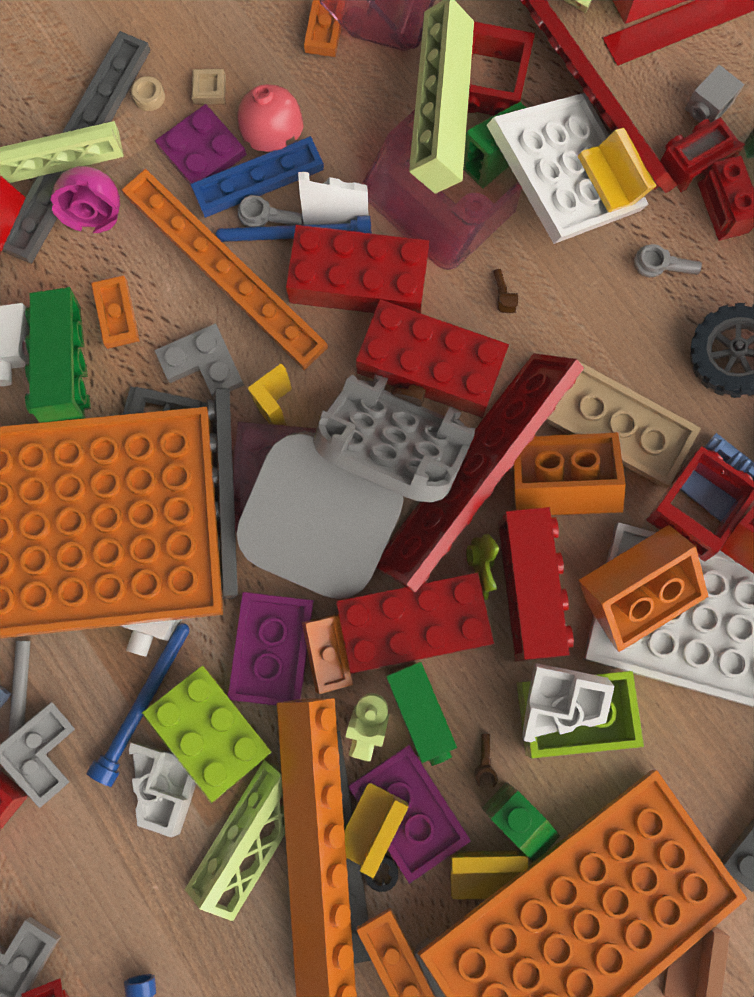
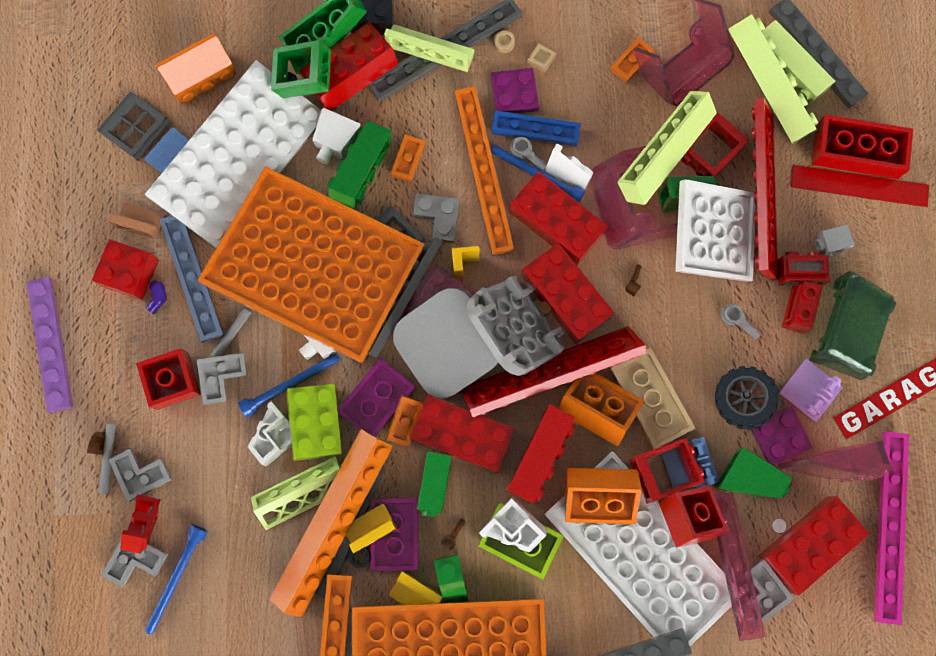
camera: 30 degrees right, 0 degrees up
(86, 199) = (431, 84): dark pink cylinder -> none
(269, 117) = (563, 99): coral cylinder -> none
(367, 726) = (401, 472): yellowish green hips -> none
(481, 556) = (523, 421): lime plate -> none
(617, 171) = (741, 251): yellow panel -> none

